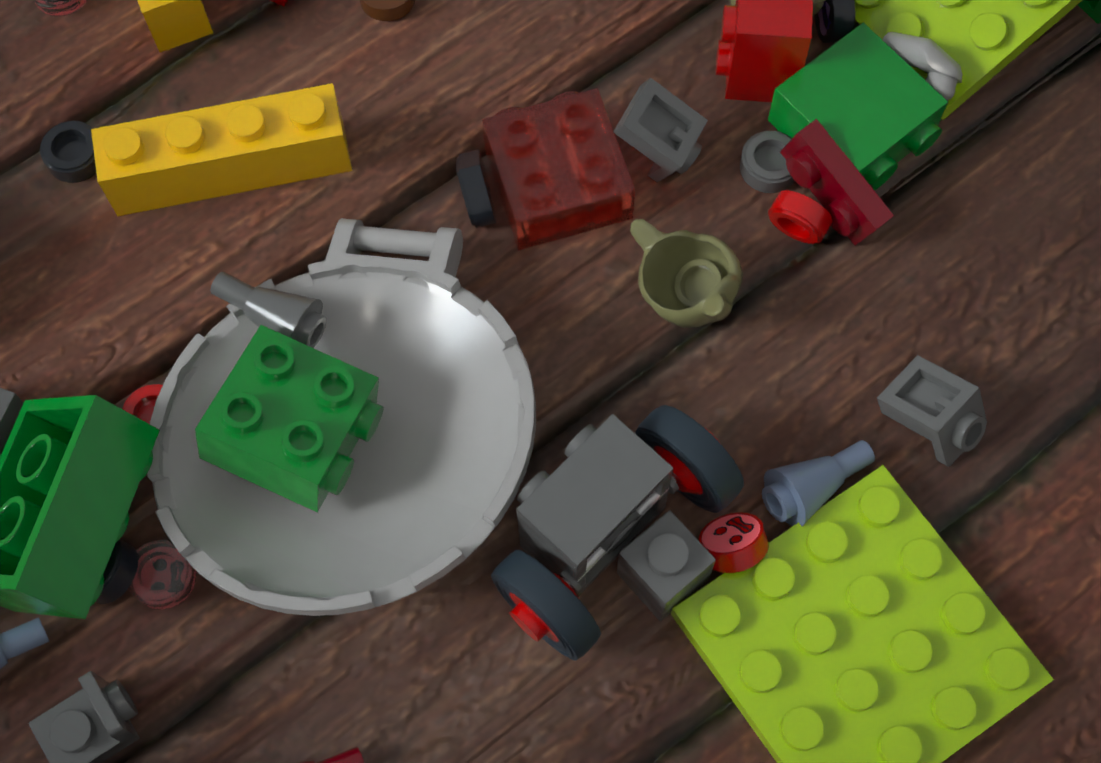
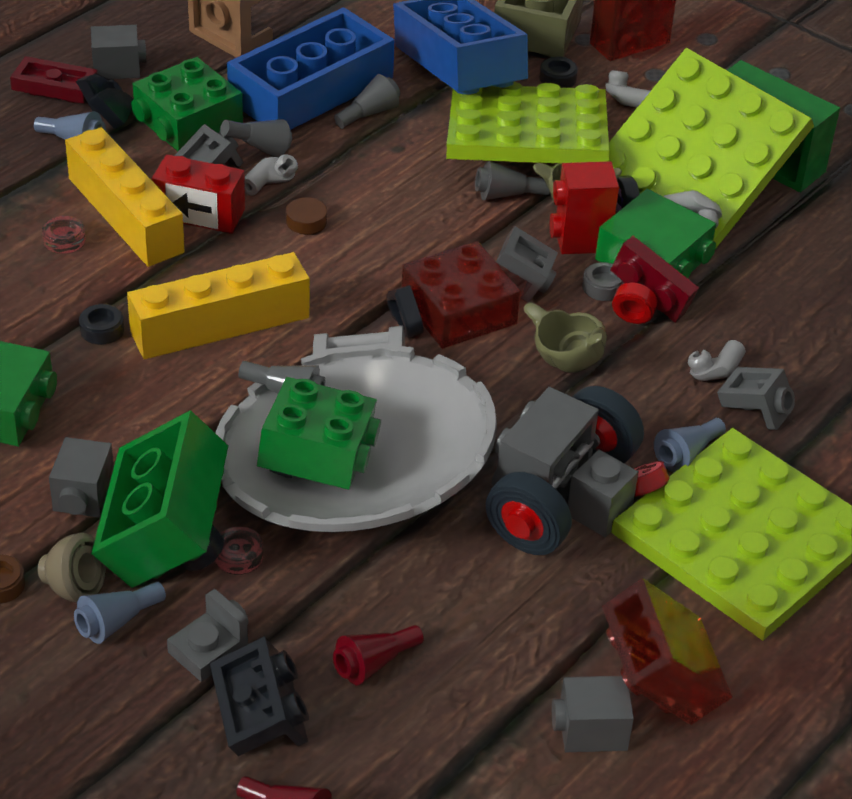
camera: 15 degrees left, 25 degrees down
(893, 345) = (707, 368): none -> light grey arm

